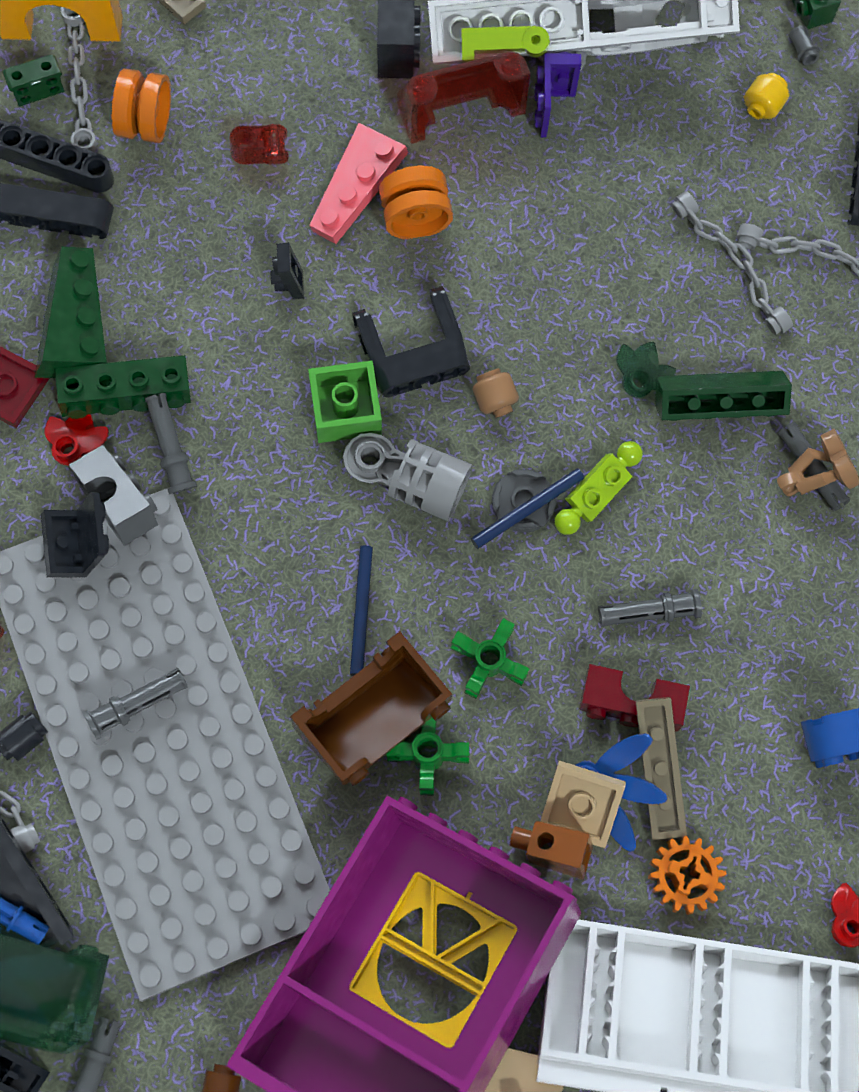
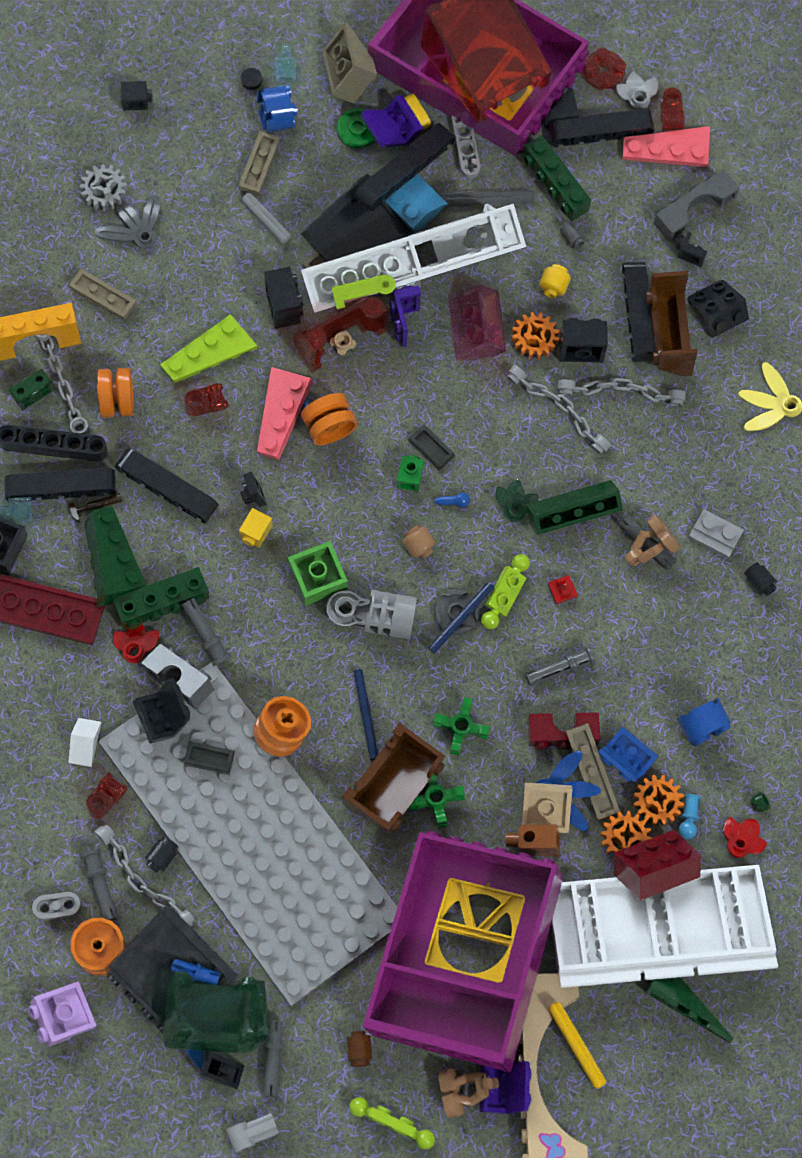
camera: 15 degrees left, 0 degrees up
(97, 244) = (97, 504): none -> dark brown piece
(120, 709) = (225, 820): dark grey pin -> none
(124, 617) = (209, 758): none -> pearl dark grey tile
(176, 240) = (166, 484): none -> black beam
(237, 597) = (282, 726): none -> orange wheel
(277, 323) = (255, 528): none -> yellow brick
(292, 81) = (210, 349): none -> lime wing
(419, 365) = (360, 535): black connector -> none
(459, 106) = (342, 336): none -> tan plate
(507, 299) = (410, 473): none -> green brick
(546, 273) = (431, 447): none -> pearl dark grey tile
(568, 350) = (460, 500): none -> blue piece
(648, 128) = (477, 324): none -> clear pink slope
(679, 504) = (562, 589): none -> red tile
(718, 757) = (628, 755): none -> blue bracket
(721, 162) = (532, 344): none -> orange gear
(723, 930) = (657, 865): none -> dark red brick
(762, 833) = (668, 798): none -> orange gear
(780, 884) = (687, 828): none -> dark azure pin
(787, 178) = (583, 340): none -> black brick

